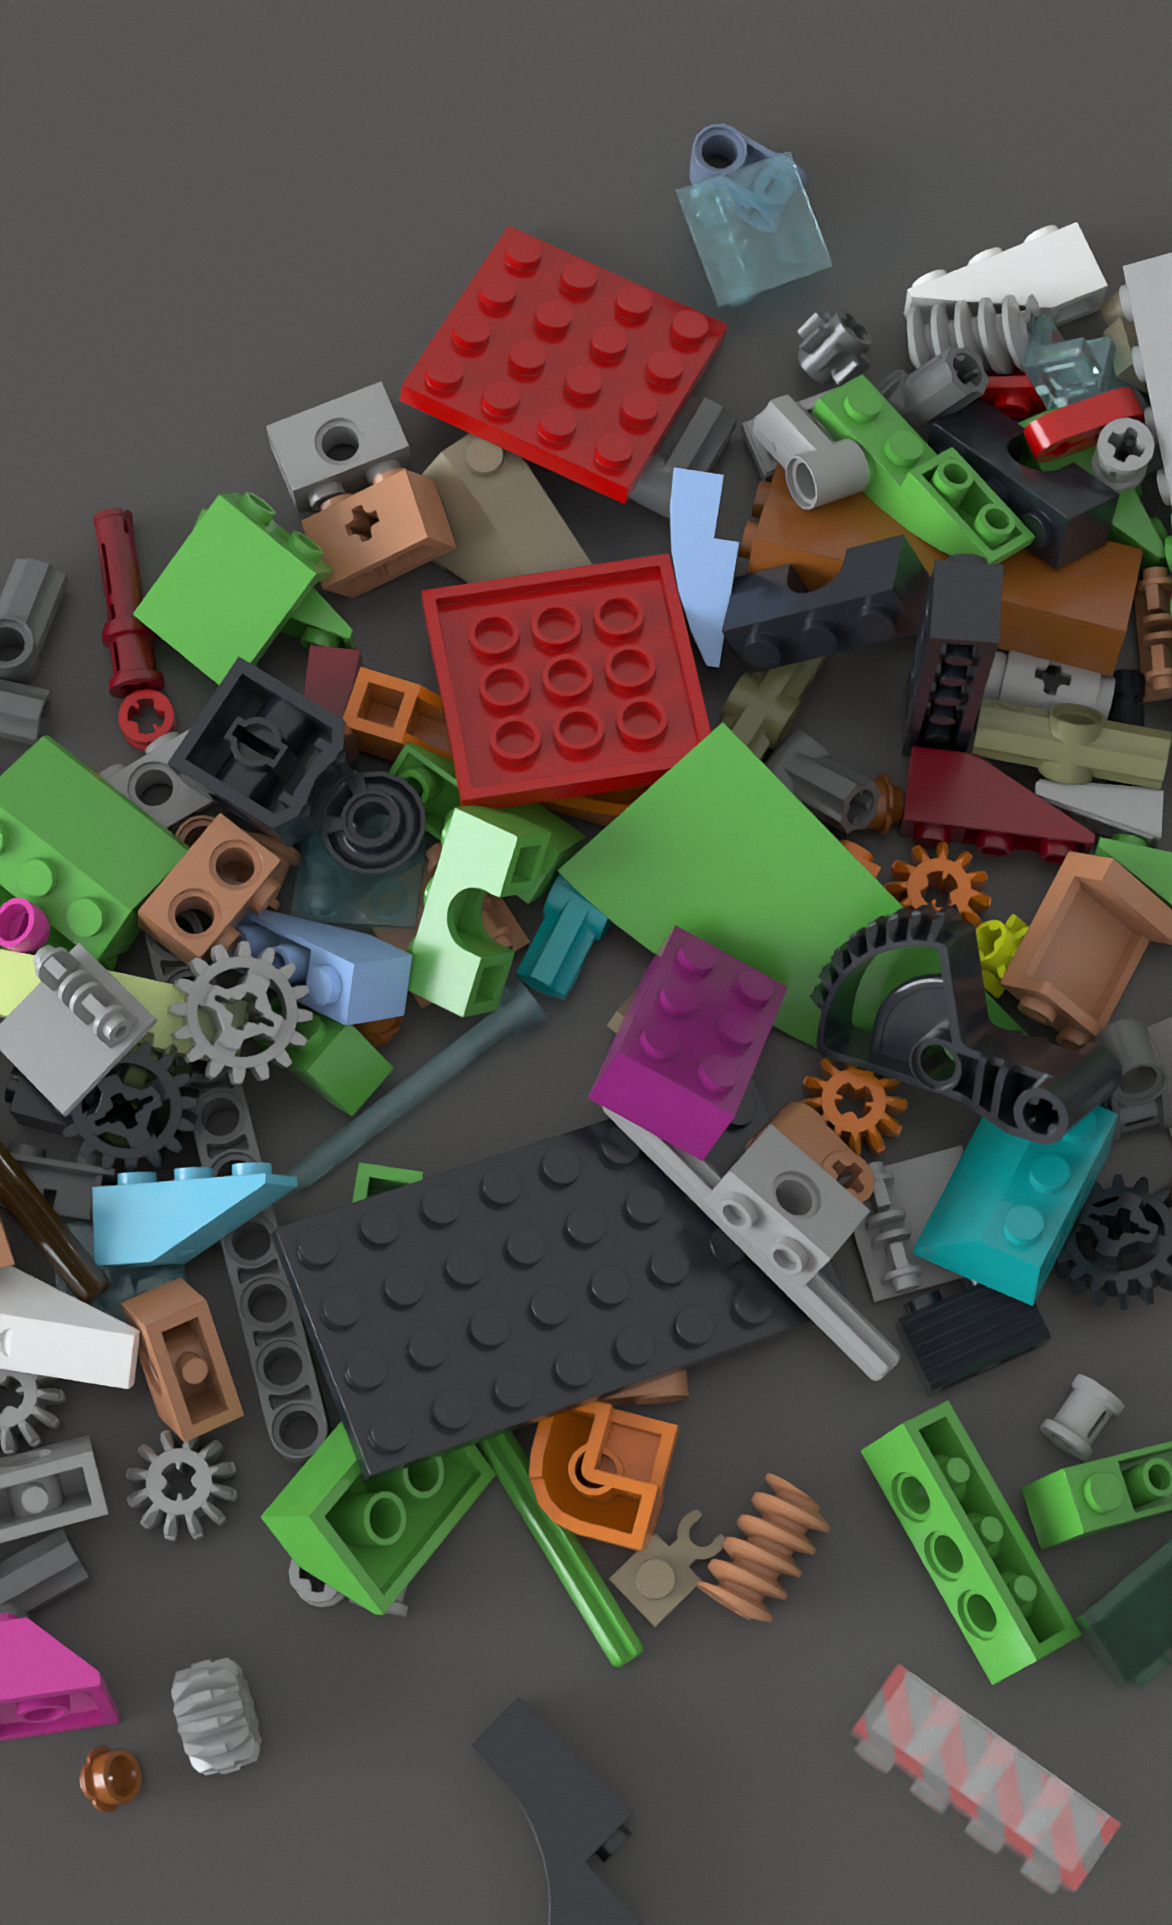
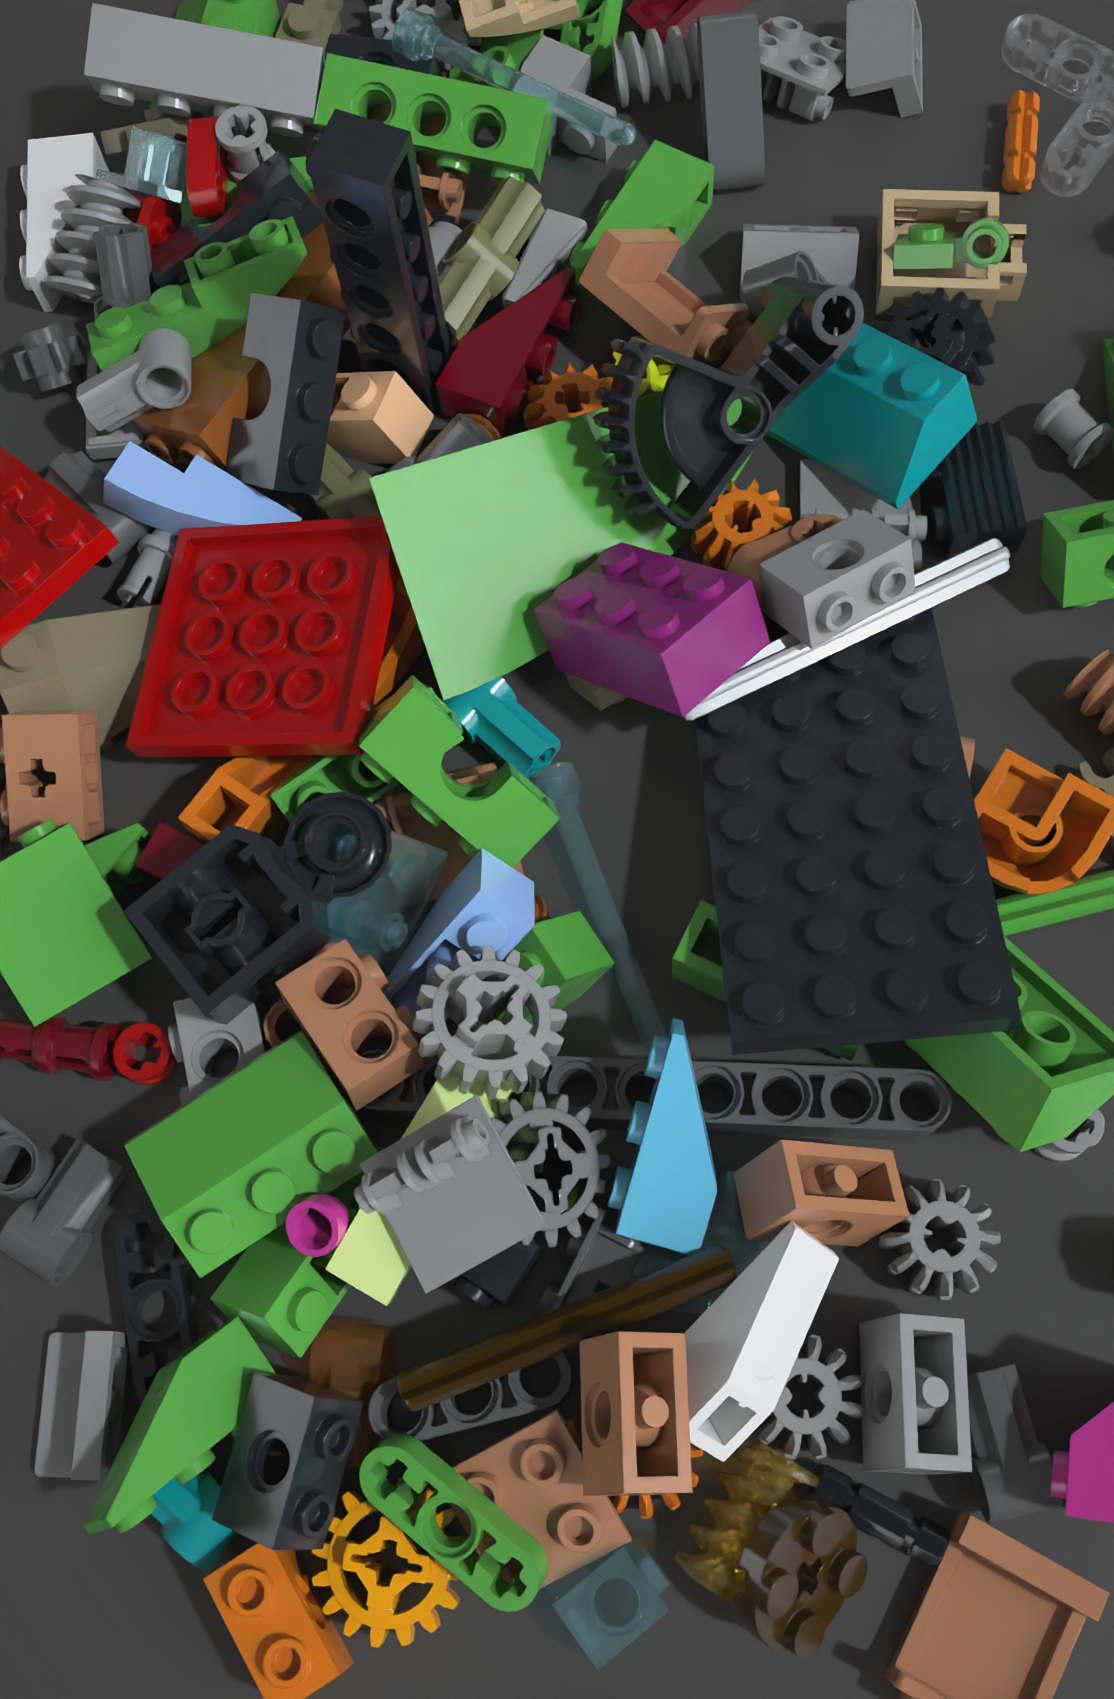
camera: 65 degrees left, 5 degrees down
(629, 538) = (150, 568): none -> light grey pin
(863, 700) = (376, 417): none -> light nougat slope

